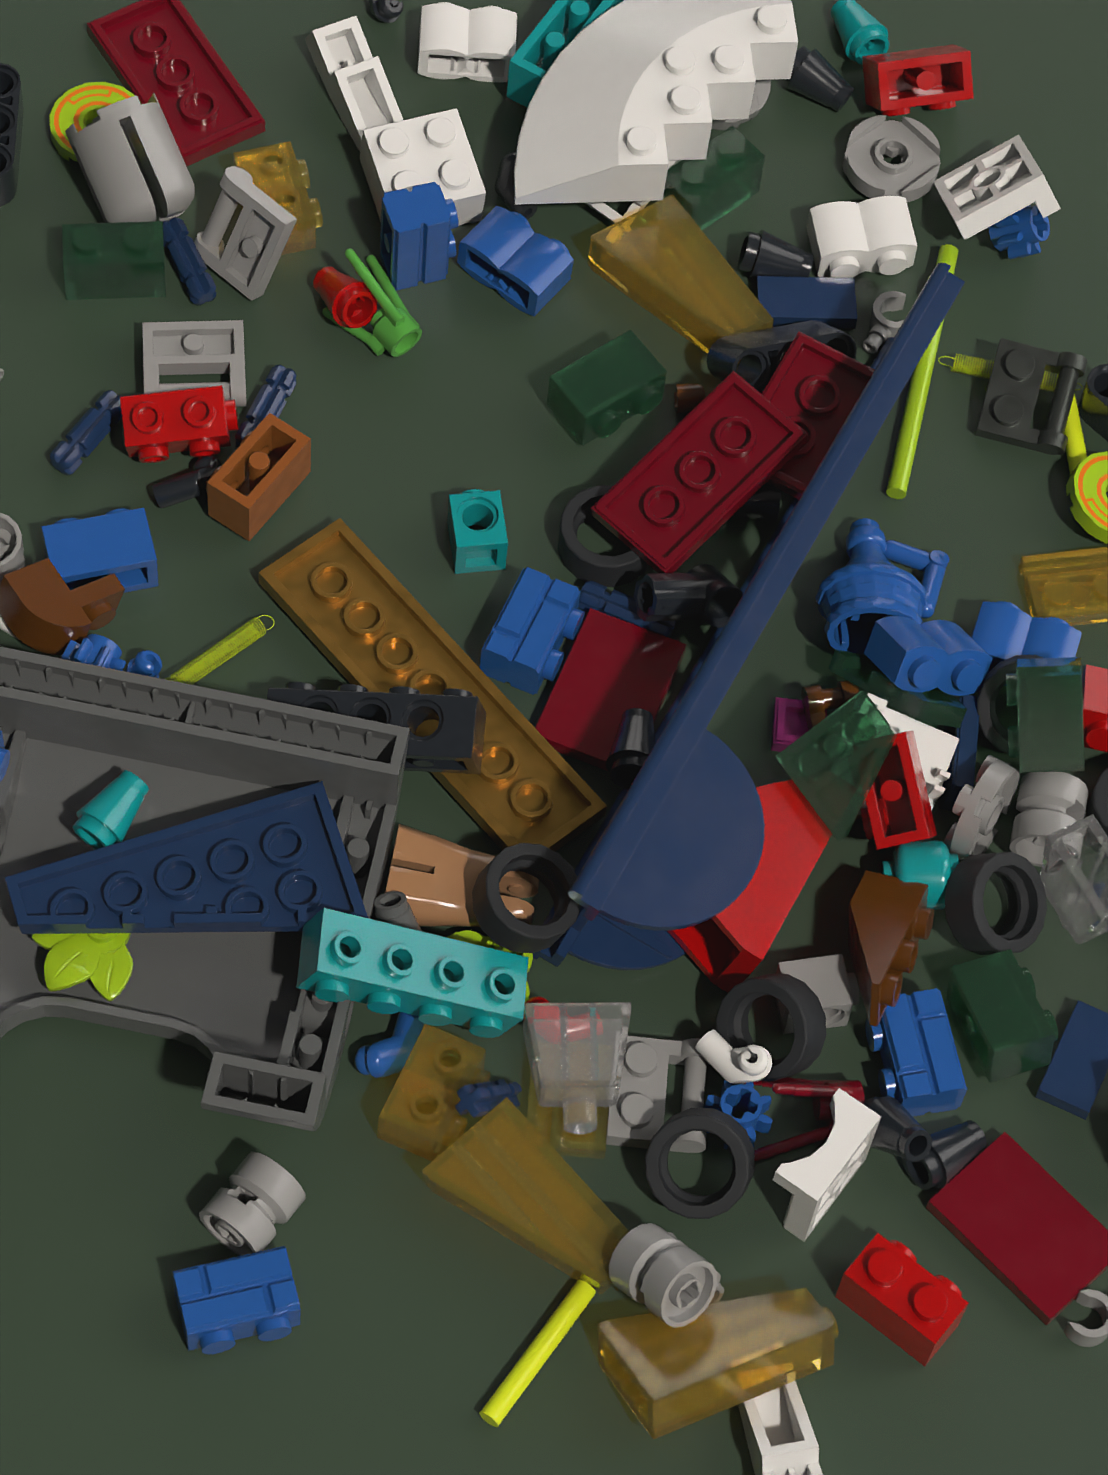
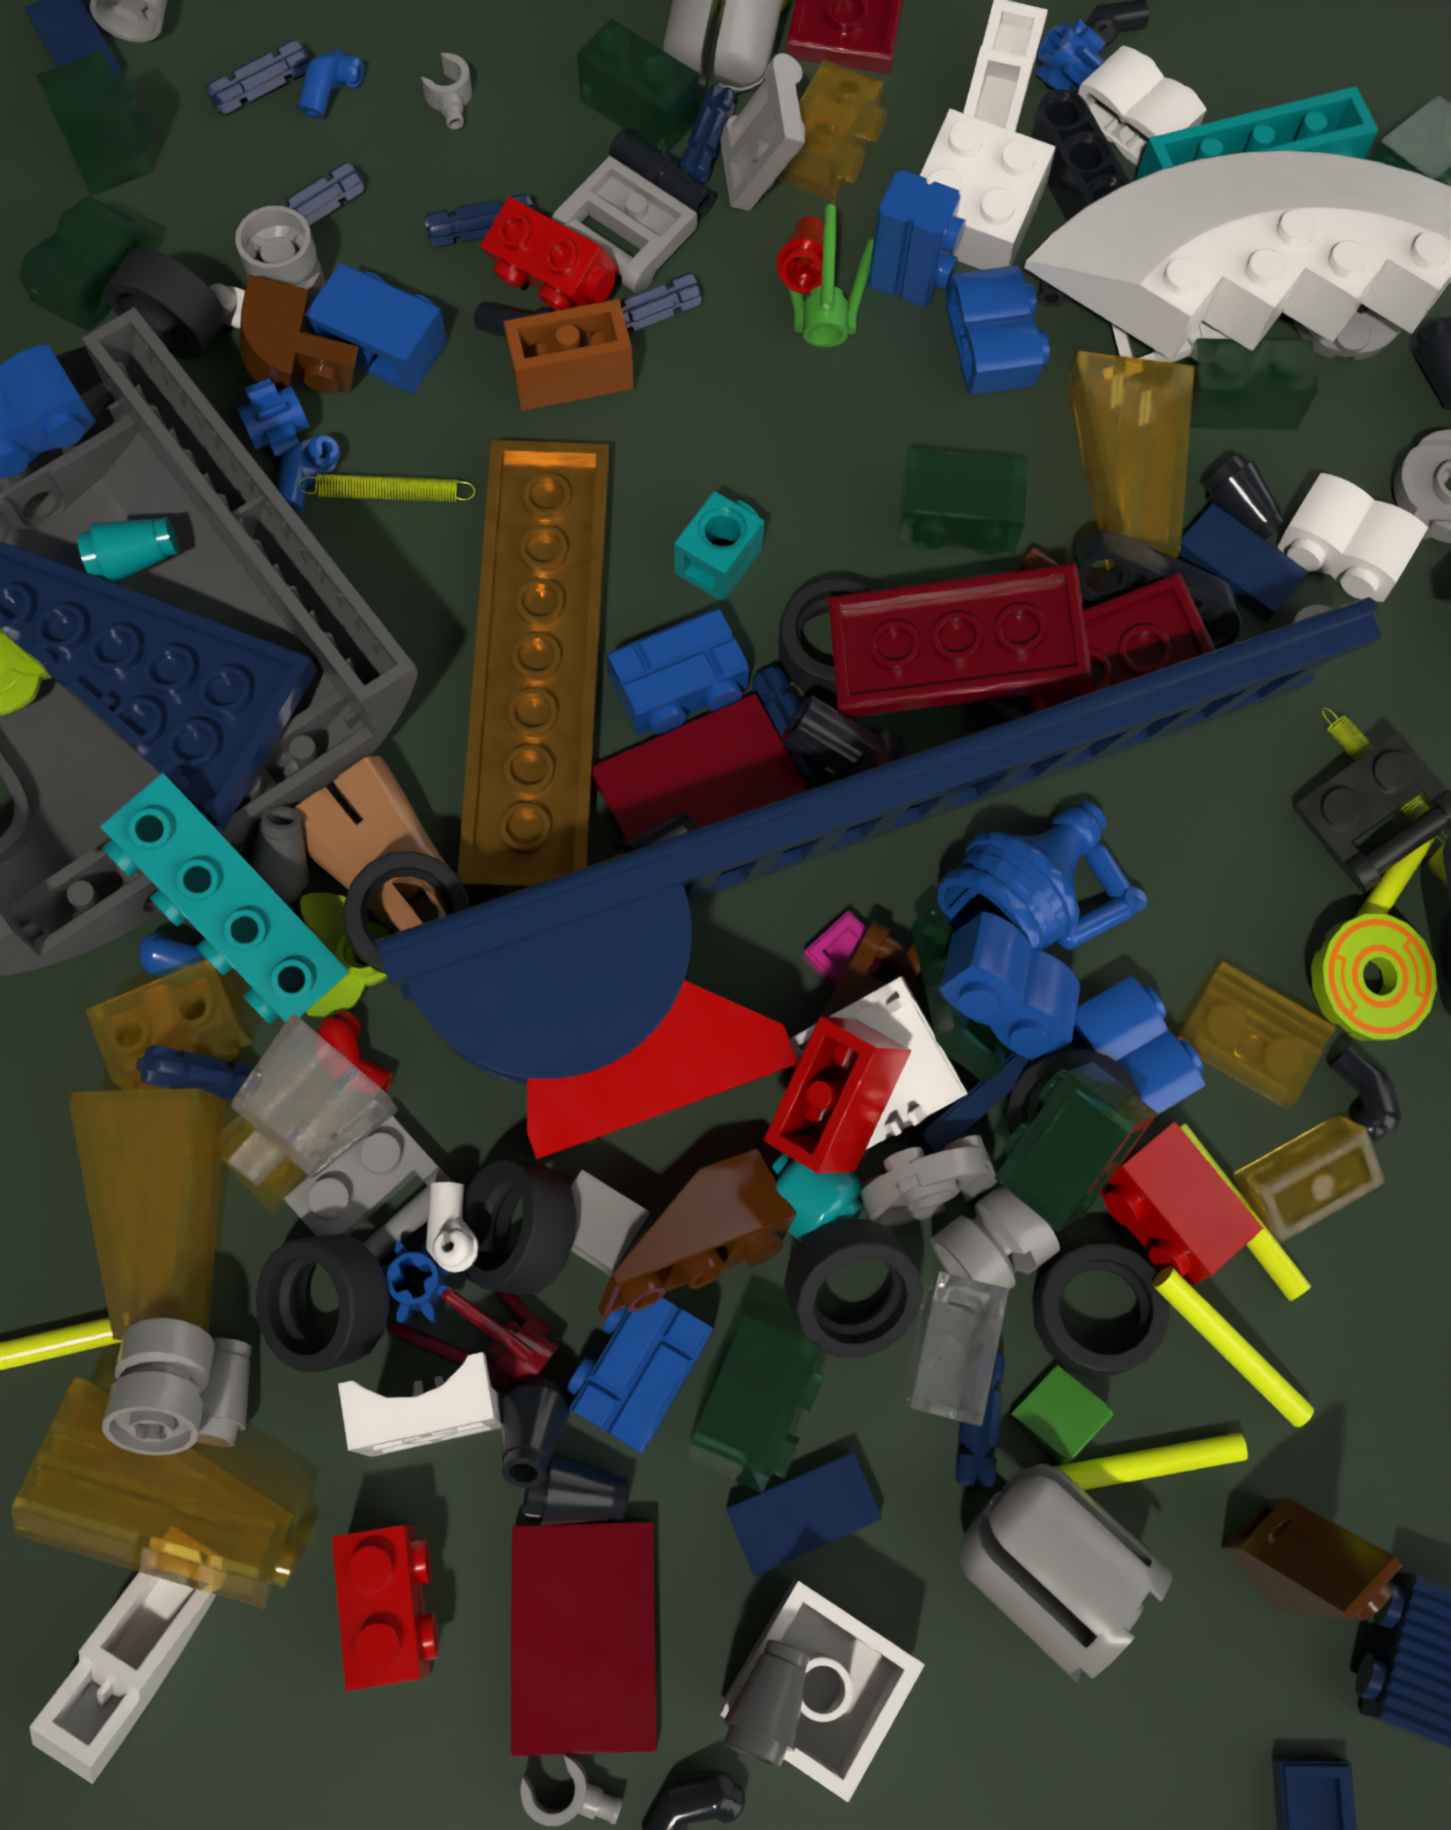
camera: 45 degrees right, 10 degrees up
(184, 308) = (661, 170): none -> black pin
(391, 36) = (1069, 55): none -> blue gear
(452, 747) = (491, 717): black brick -> none
(487, 114) = (1083, 159): none -> black beam
(840, 761) = (785, 1025): clear green wing -> none
(916, 401) = (1390, 647): lime bar -> none

